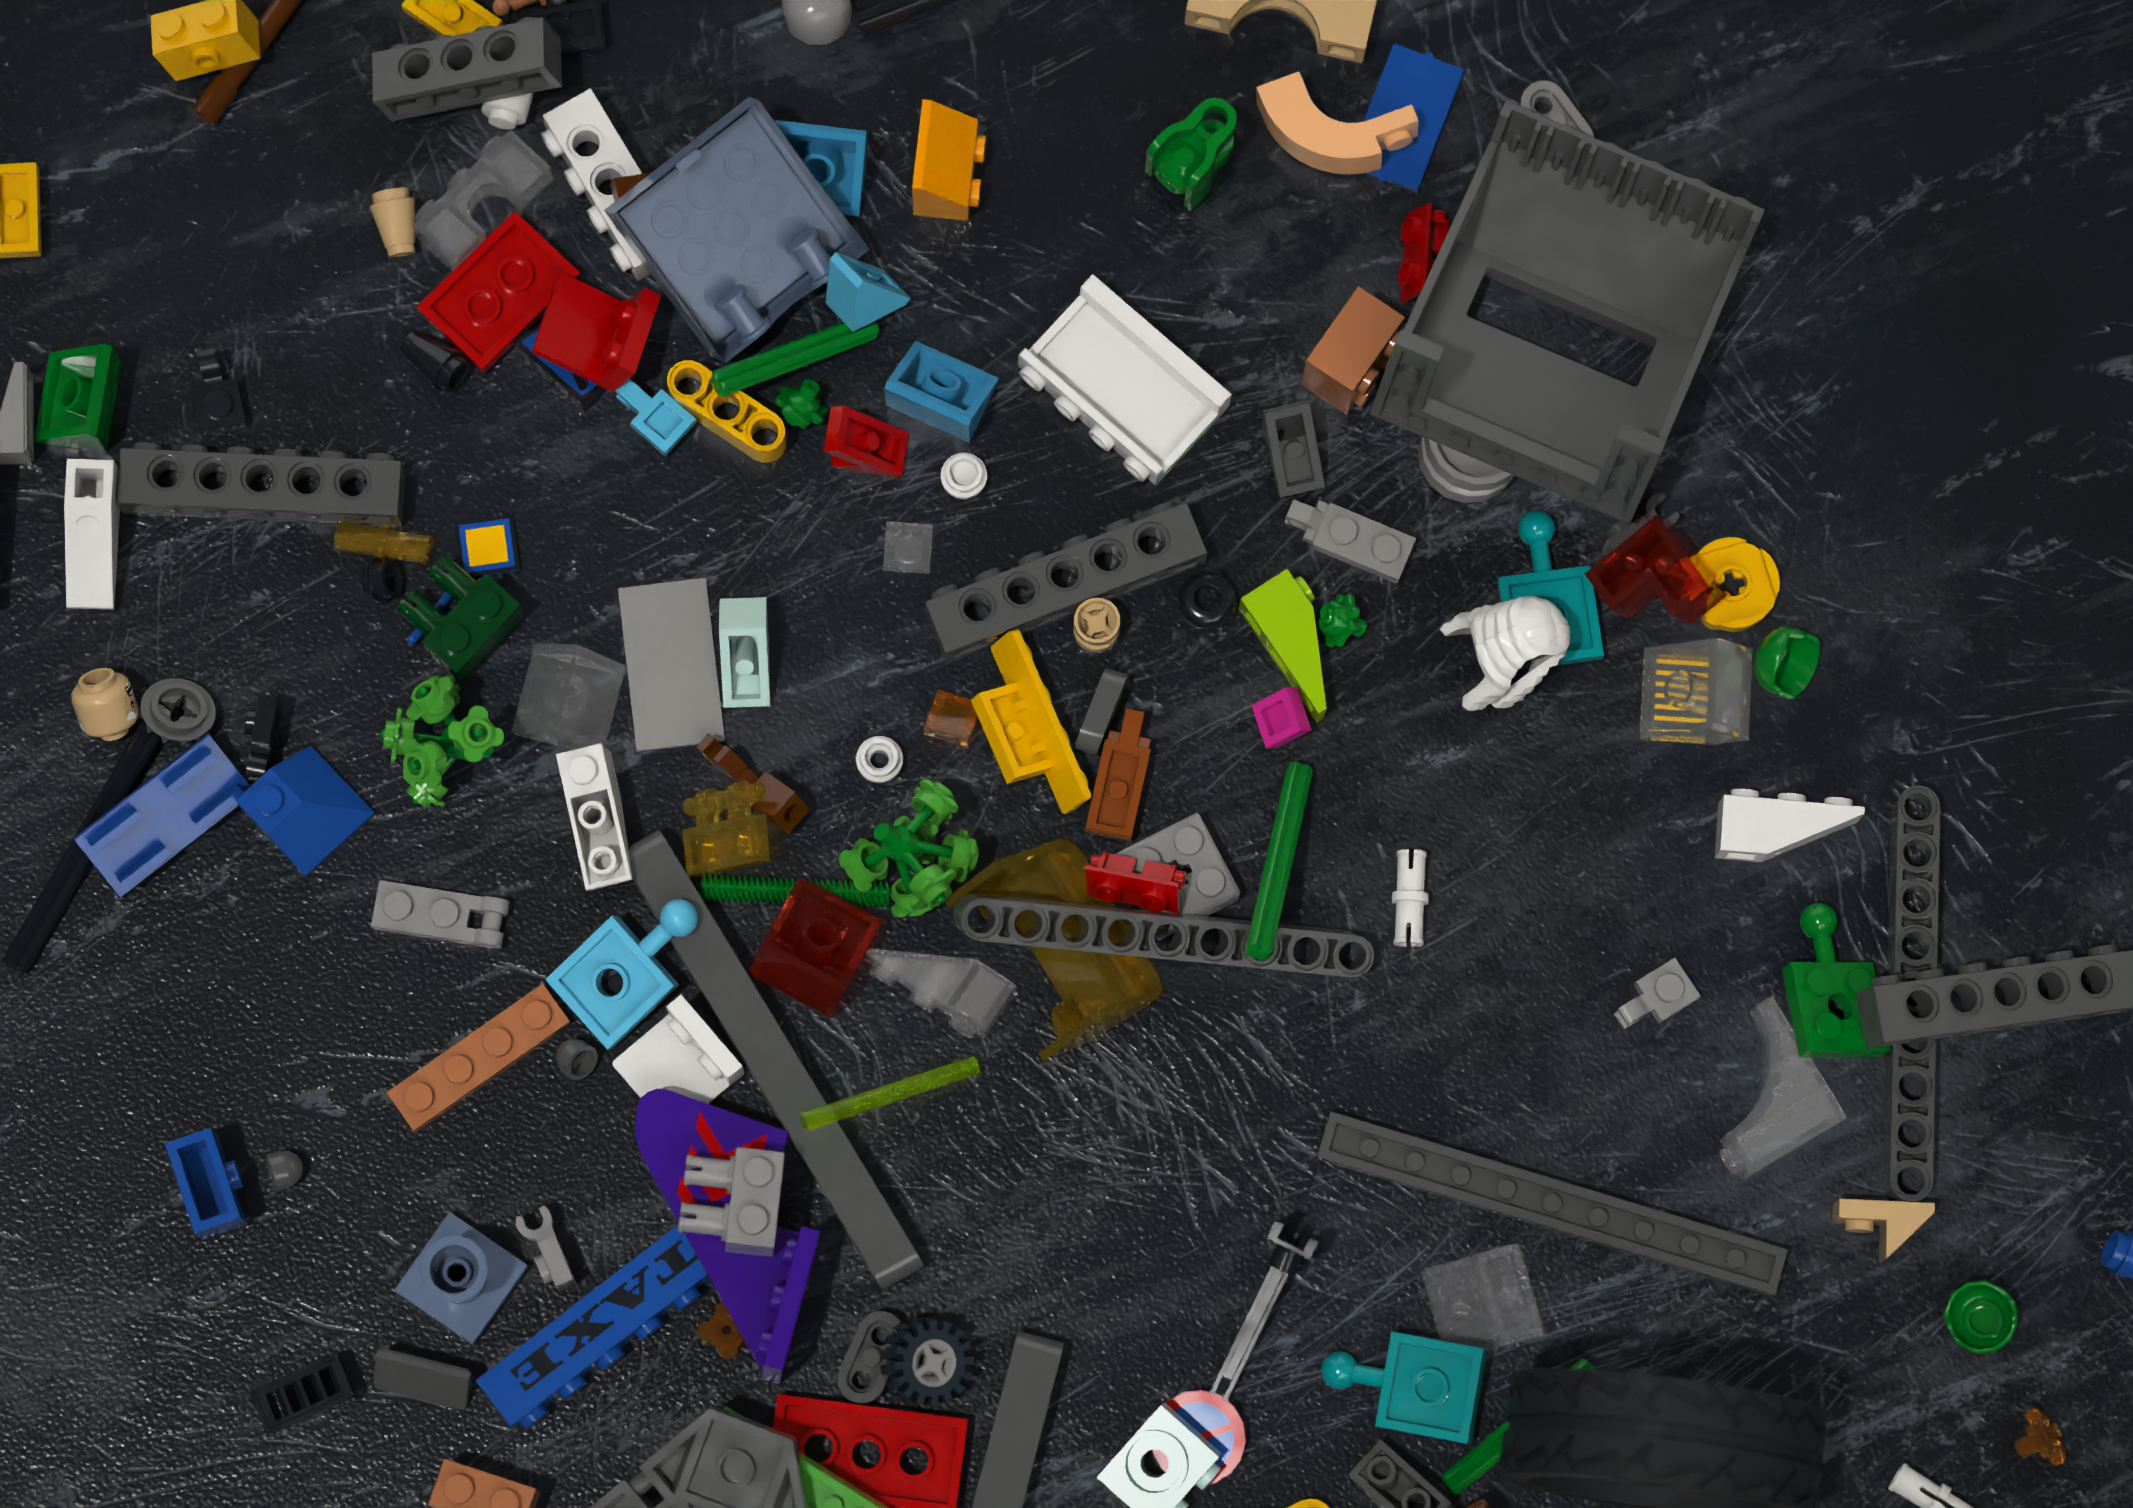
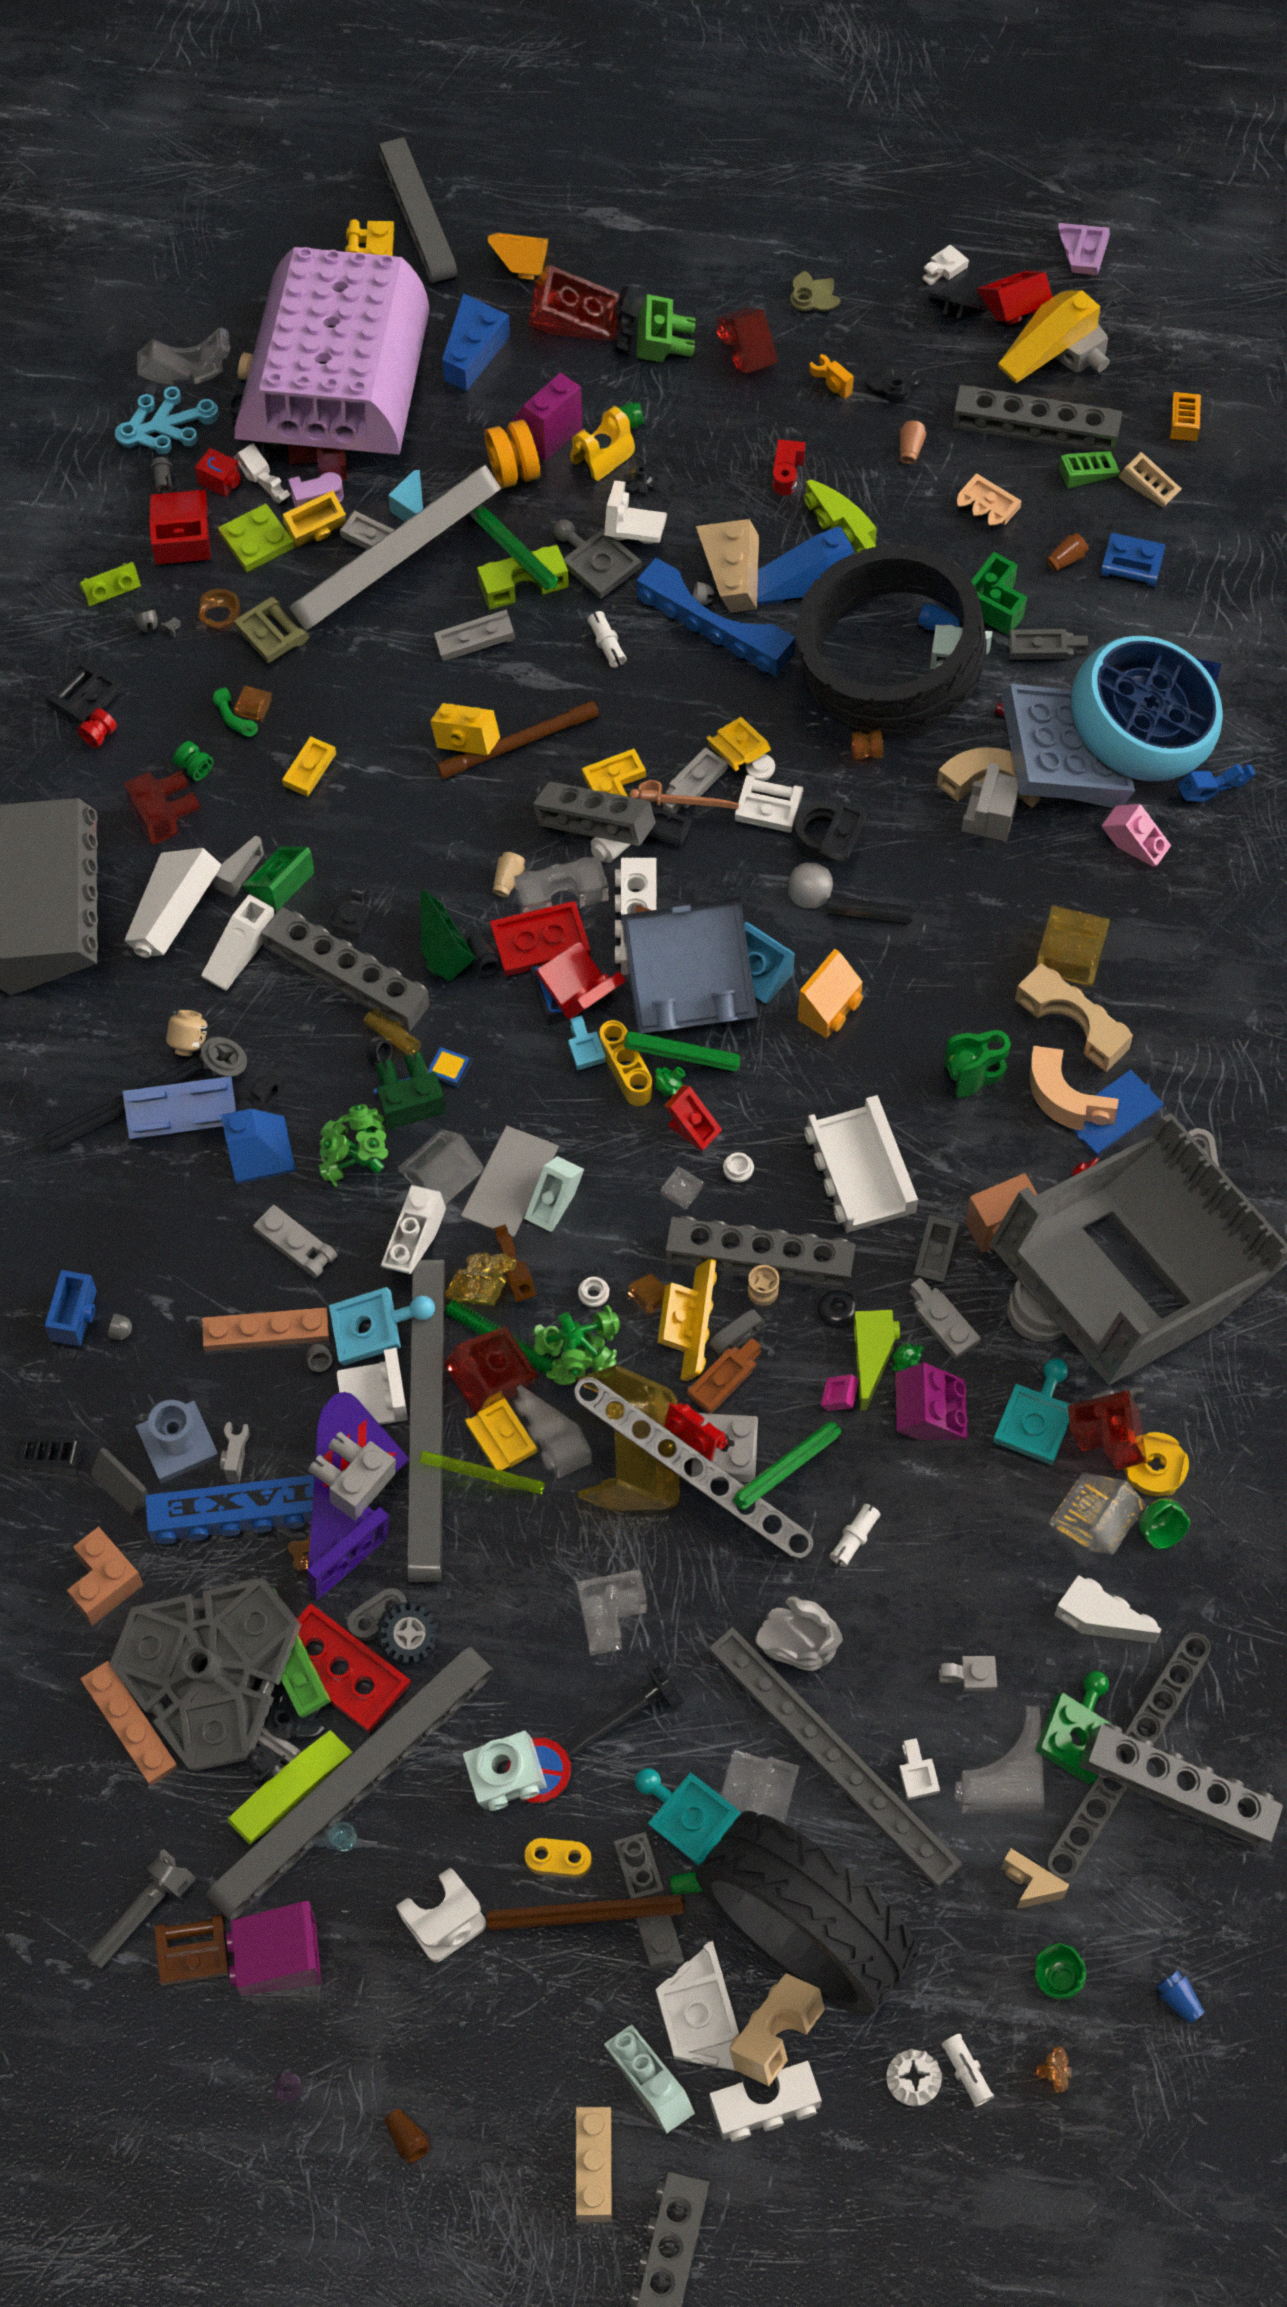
camera: 35 degrees right, 15 degrees down
(367, 371) = (441, 940): none -> dark green slope
(861, 292) = (739, 1037): medium azure slope -> none
(881, 1027) = (501, 1435): none -> yellow plate
(940, 390) = (752, 1115): dark azure slope -> none
(1150, 1180) = (606, 1600): none -> clear brick
(1405, 666) = (930, 1404): none -> magenta slope
(1422, 1075) = (799, 1635): none -> light grey hair
(1504, 640) = (997, 1409): white hair -> none
(1669, 1168) = (917, 1775): none -> white plate

